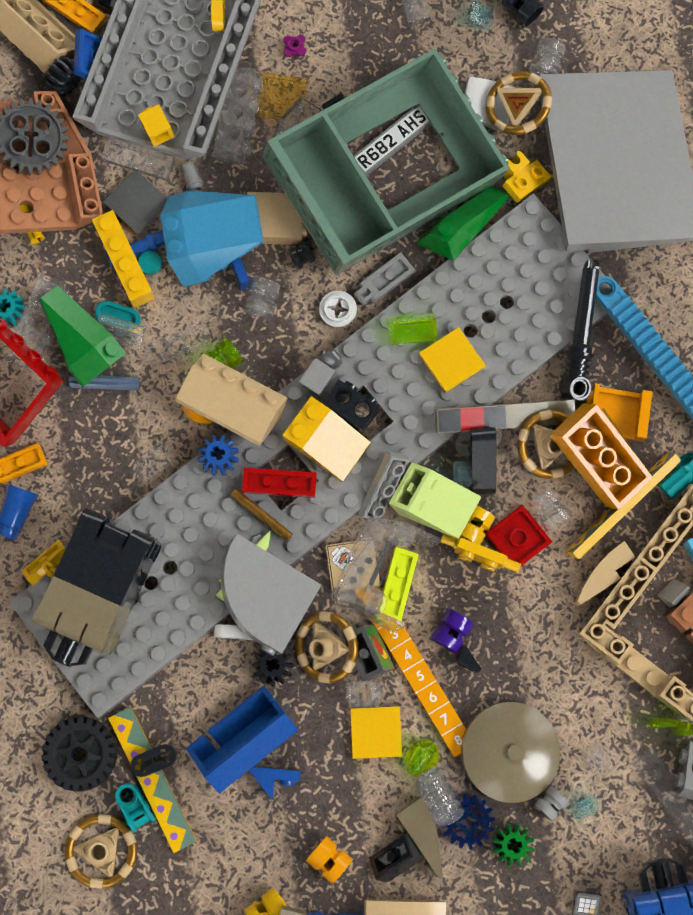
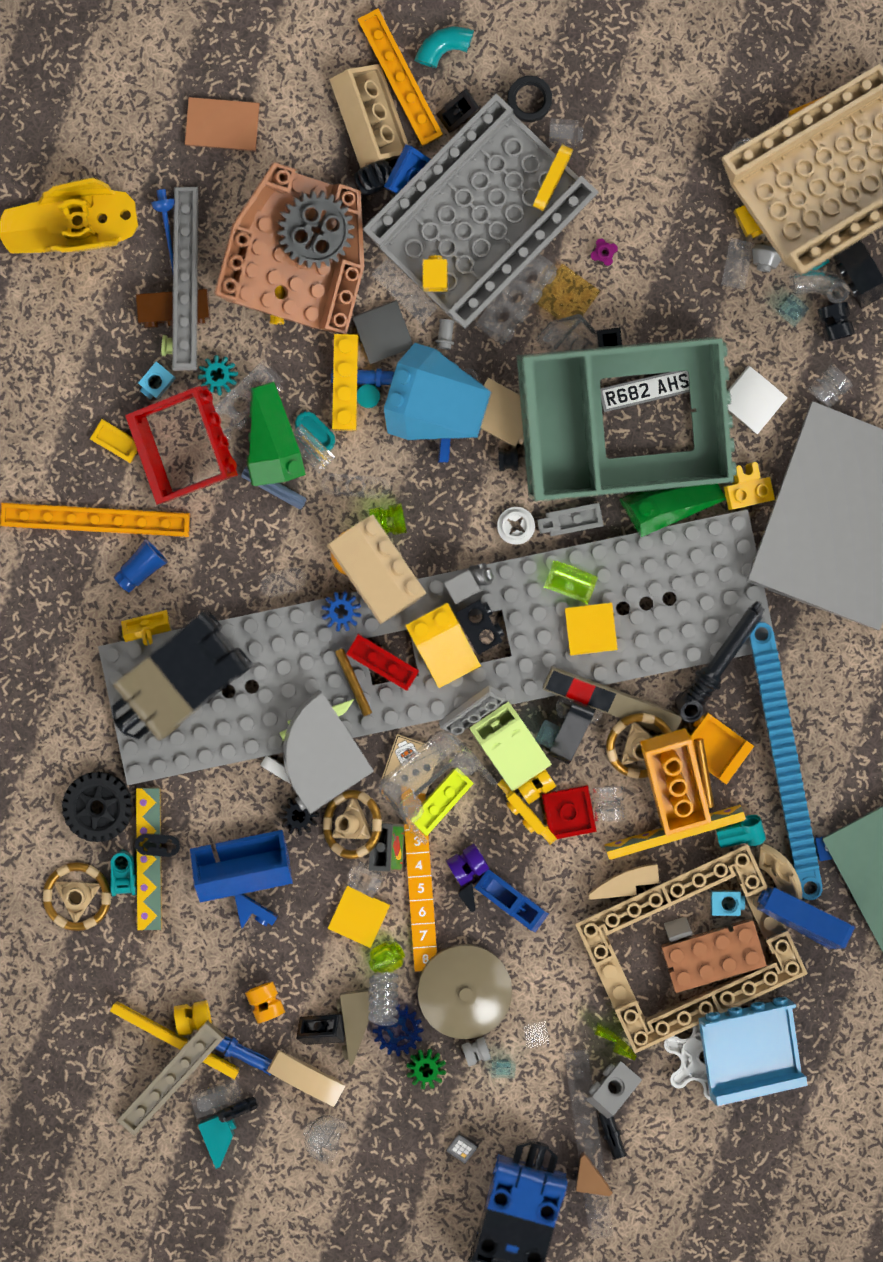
camera: 30 degrees right, 10 degrees up
(262, 298) = (460, 479): clear wheel -> none
(509, 644) = (511, 900): none -> blue slope
(518, 102) = (778, 418): piece -> none

